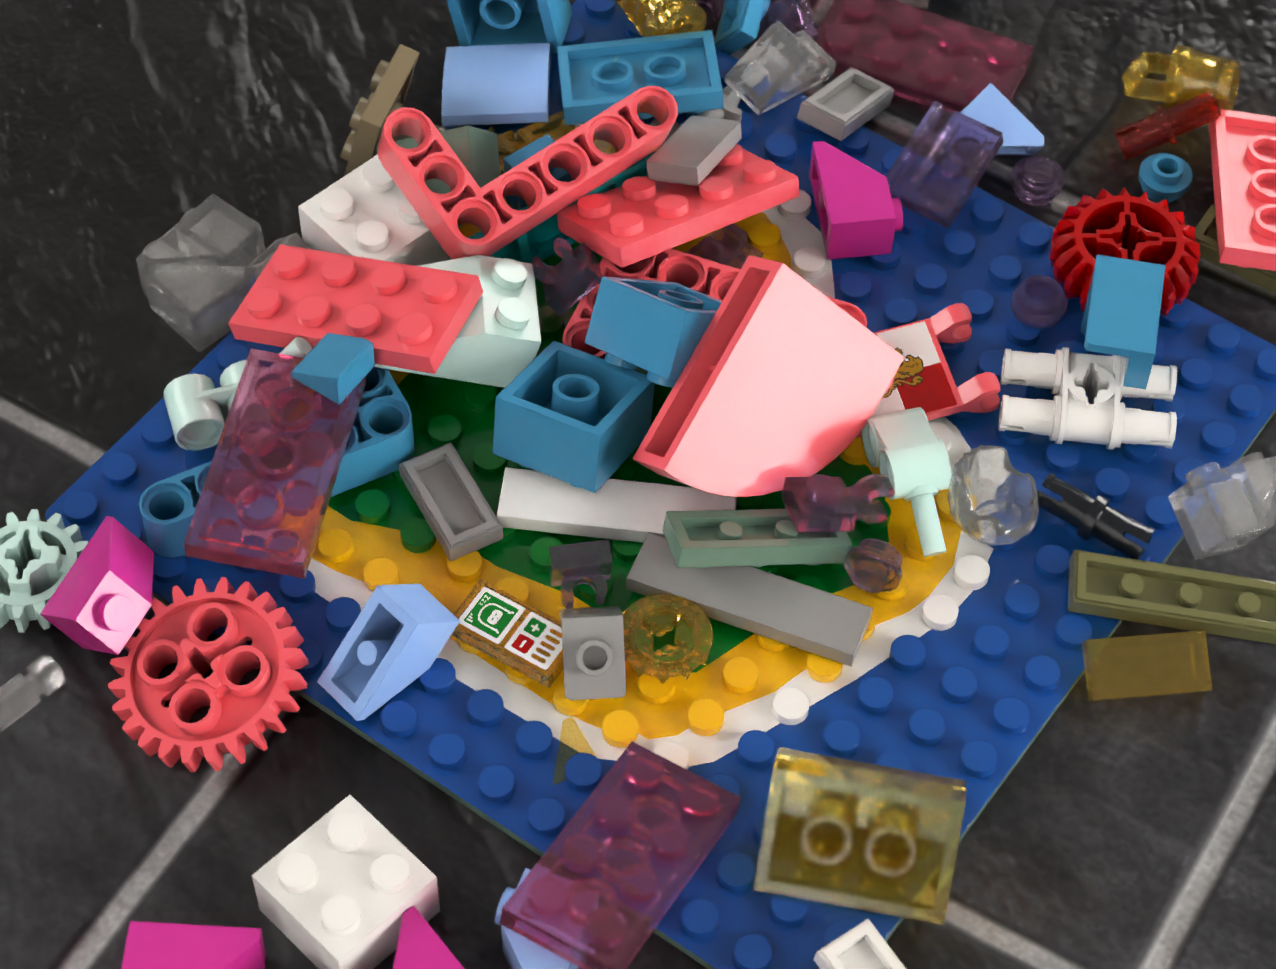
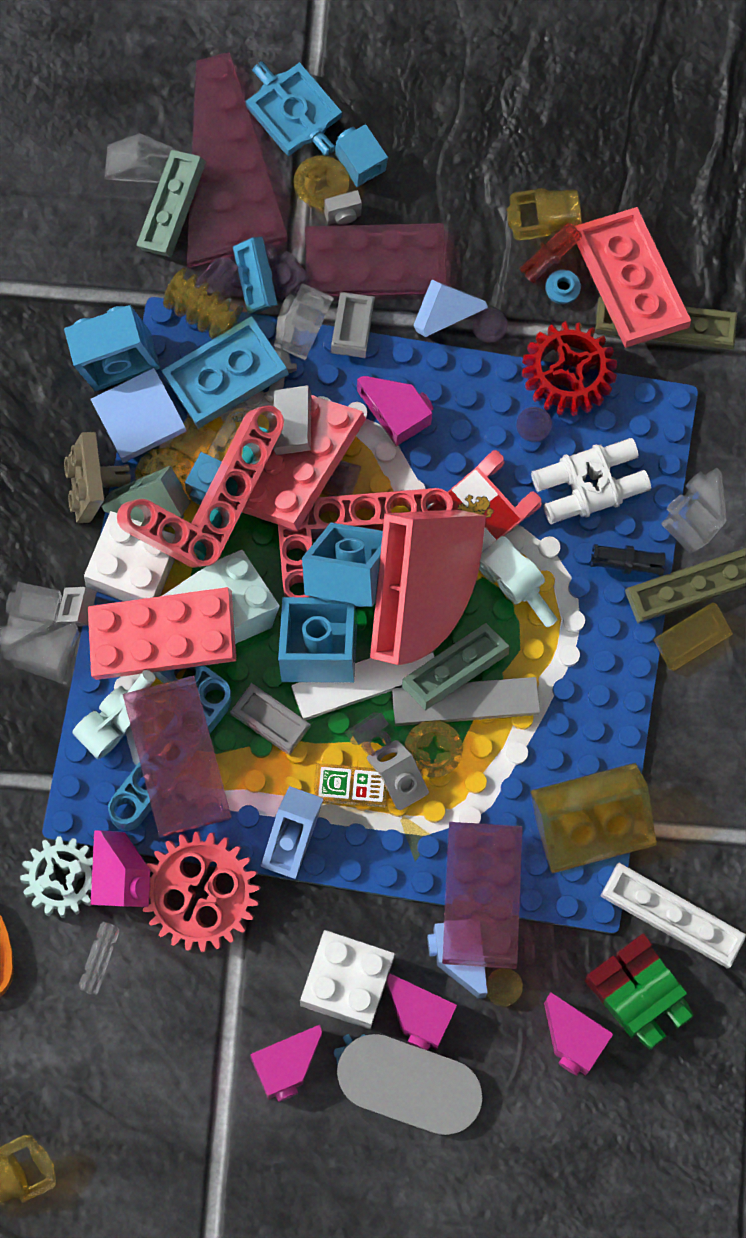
camera: 30 degrees left, 20 degrees up
(336, 365) = (178, 684): dark azure slope -> none
(570, 278) = (266, 546): clear purple tile -> none
(827, 505) = (485, 627): plate -> none
(874, 566) = (525, 651): plate -> none
(943, 164) = (436, 353): clear purple plate -> none
(992, 497) = (572, 579): clear hair -> none
(1124, 314) = (596, 431): dark azure panel -> none

